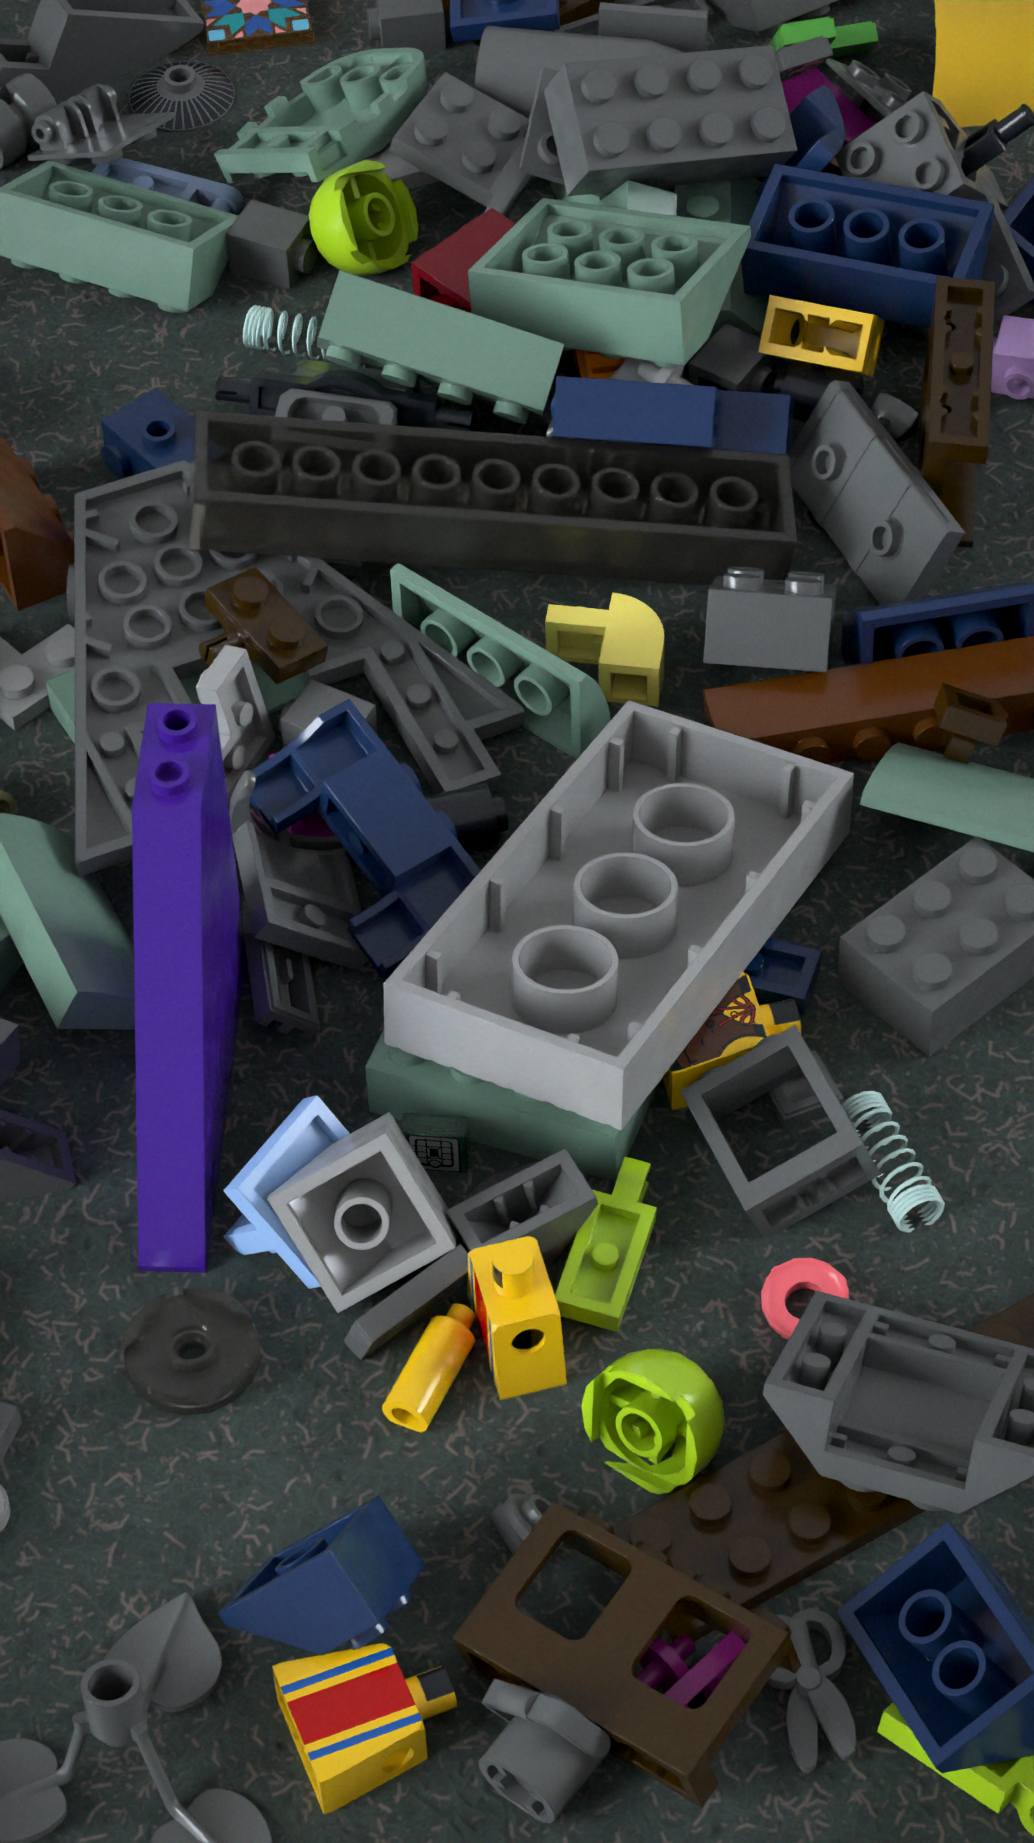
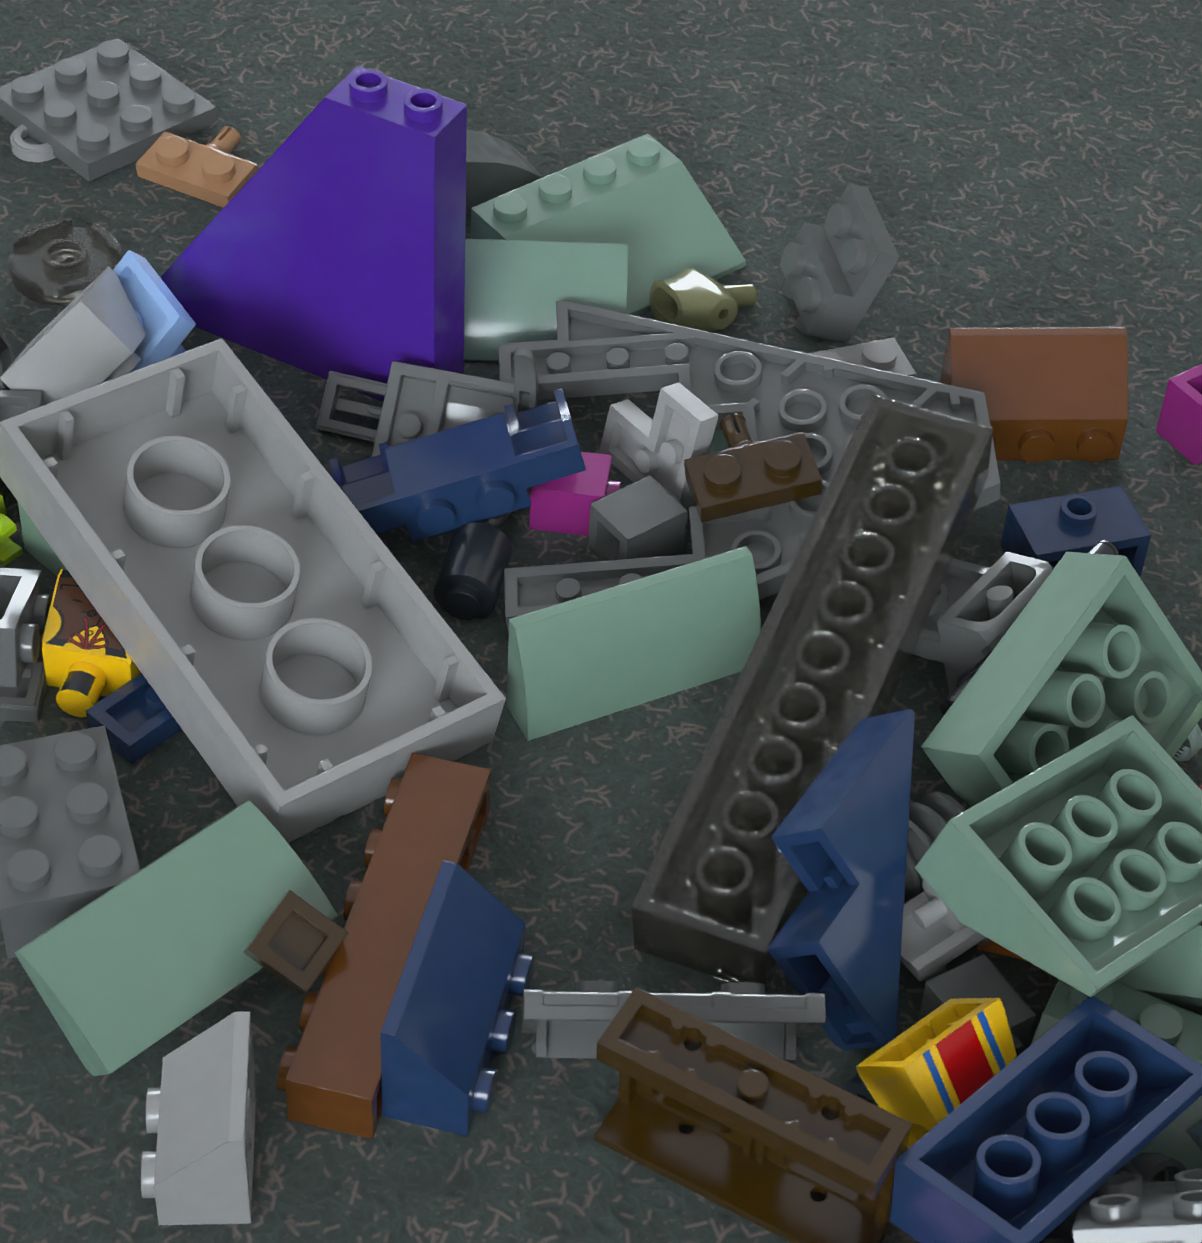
camera: 110 degrees right, 5 degrees down
(621, 640) = (609, 768): light yellow brick -> none
(770, 620) = (544, 847): dark grey brick -> none

